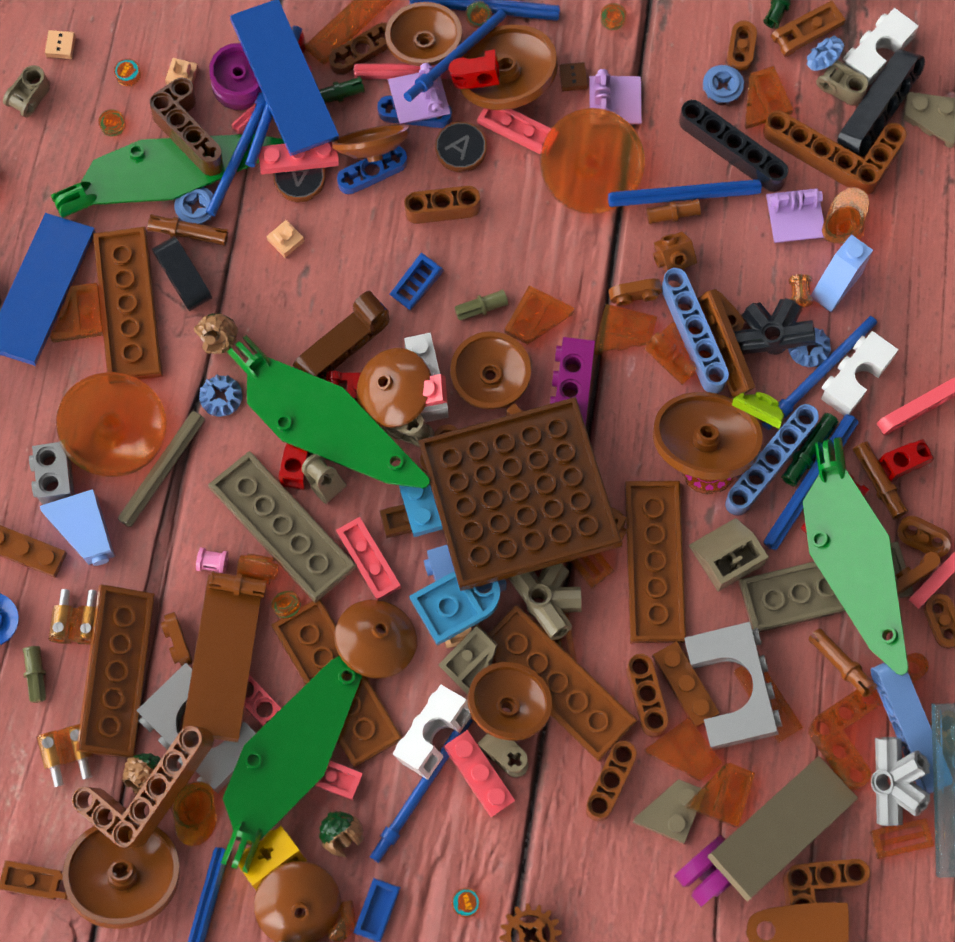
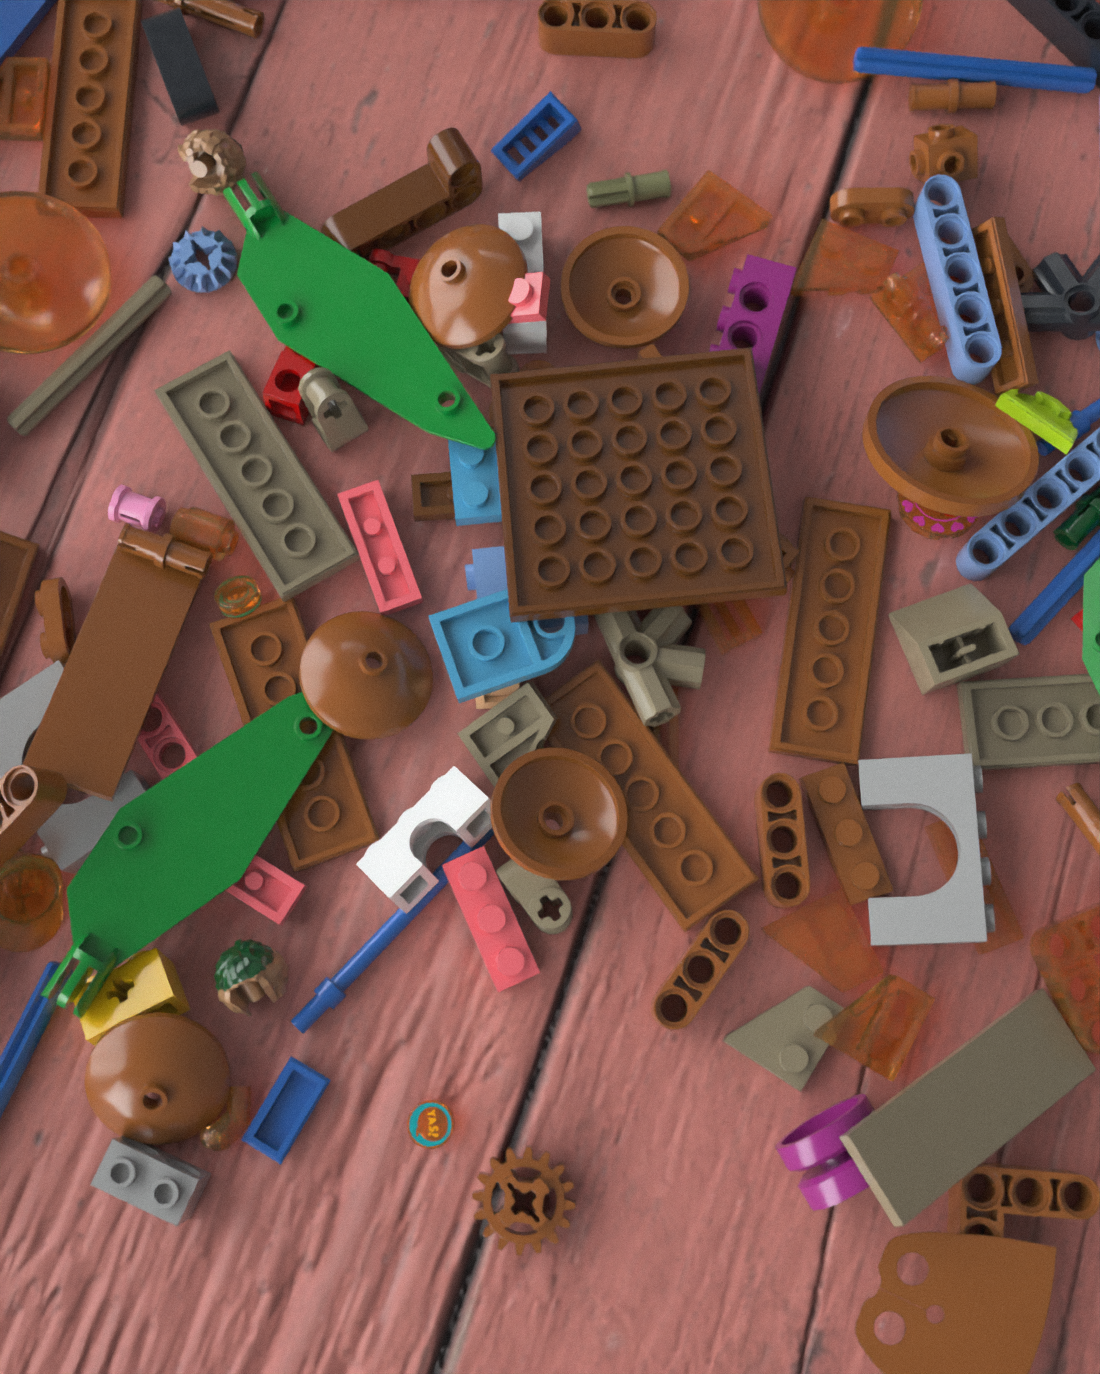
camera: 10 degrees right, 5 degrees up
(285, 238) = (348, 42): light nougat tile -> none

